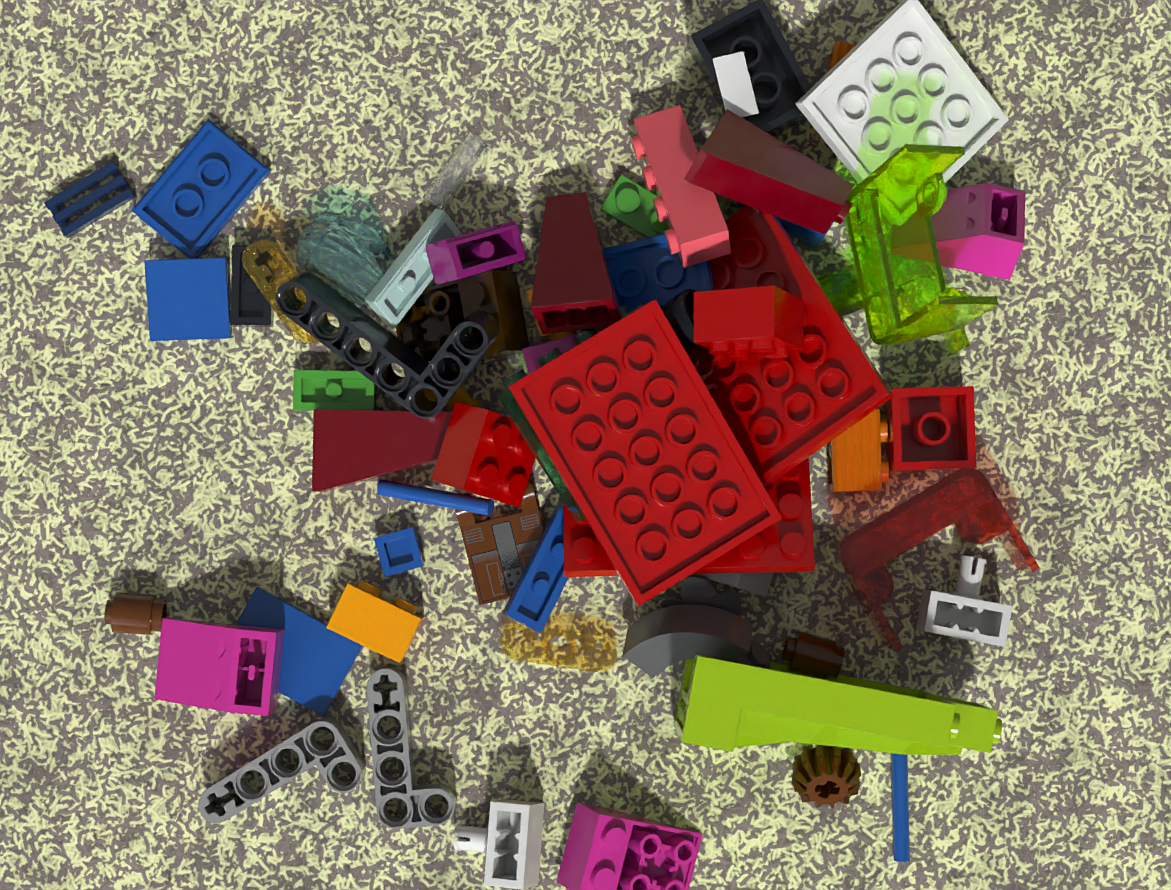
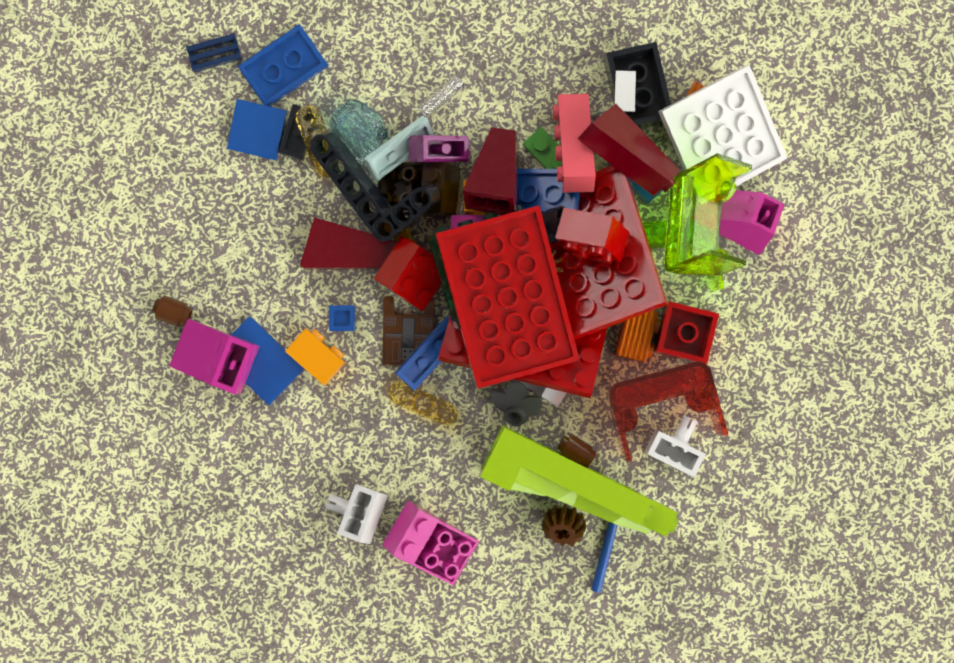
camera: 15 degrees right, 0 degrees up
(277, 774) = (230, 432): light grey beam -> none
(332, 391) = (329, 209): bright green plate -> none
(401, 747) = (310, 436): light grey beam -> none
(435, 497) = (373, 291): blue bar -> none
(688, 629) = (498, 412): dark grey arch -> none

